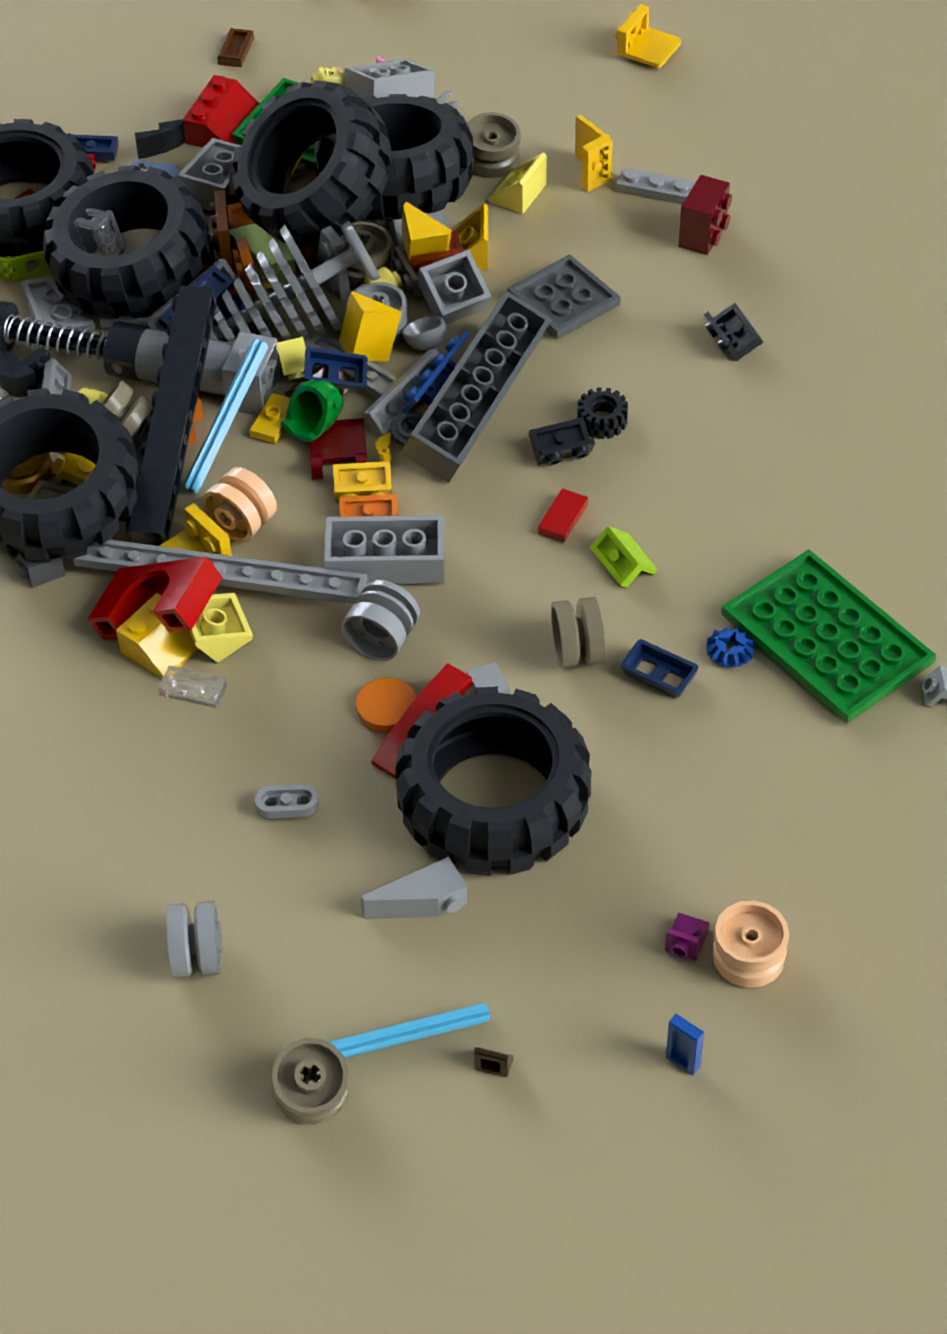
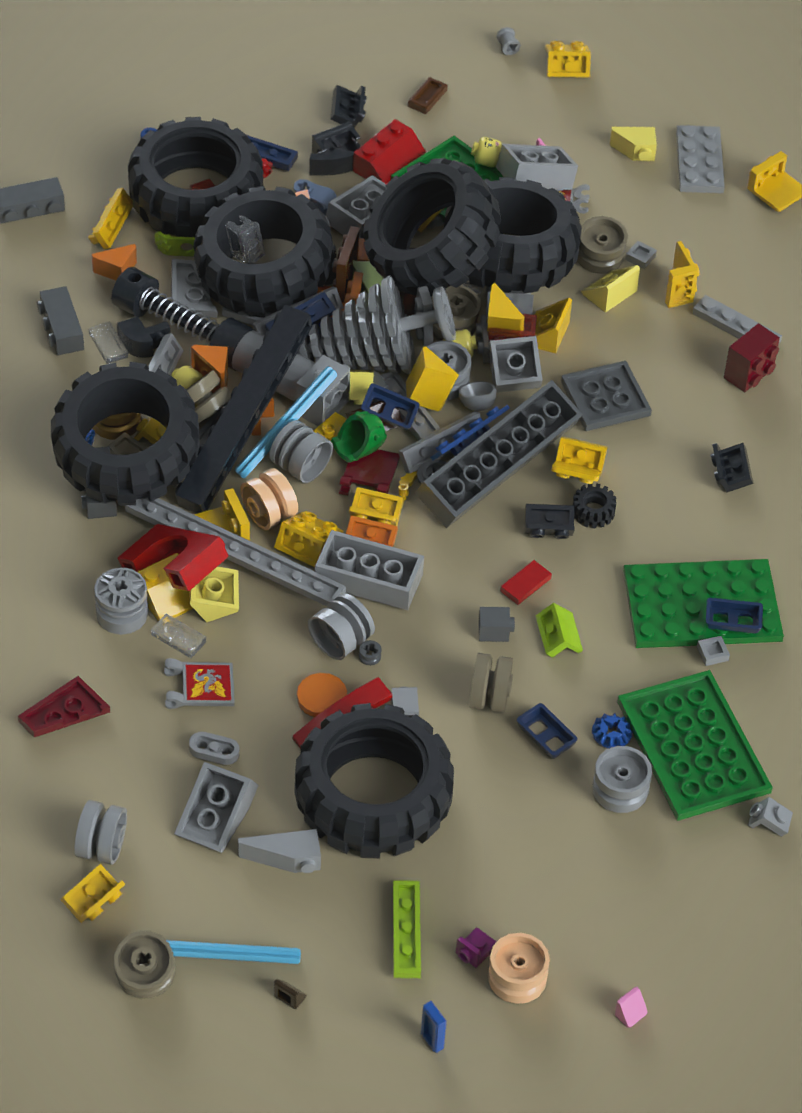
camera: 15 degrees right, 0 degrees up
(88, 808) = (63, 708): none -> dark red wing
(108, 371) = (209, 358): none -> orange slope
(111, 665) = (121, 600): none -> light grey wheel
(153, 112) = (338, 138): none -> black hinge
(155, 79) = (348, 105): none -> black bracket
(209, 1016) = (91, 893): none -> yellow bracket
(242, 733) = (202, 684): none -> flag
(254, 443) = (301, 451): none -> light grey wheel
(295, 537) = (304, 536): none -> yellow bracket
(317, 868) = (216, 807): none -> light grey slope
(418, 634) = (370, 646): none -> dark grey bush
(479, 37) = (635, 142): none -> light yellow slope
(535, 144) = (641, 254): none -> light grey plate
(550, 568) = (495, 624): none -> dark grey brick
(554, 38) = (700, 159): none -> light grey plate
(566, 368) = (579, 460): none -> yellow bracket
(599, 941) = (406, 929): none -> lime plate
(765, 483) = (671, 601): none -> green plate
(769, 695) = (622, 779): none -> light grey wheel
(801, 528) = (713, 650): none -> light grey plate
(806, 477) = (733, 610): none -> dark blue piece
(894, 949) = (631, 1007): none -> bright pink slope

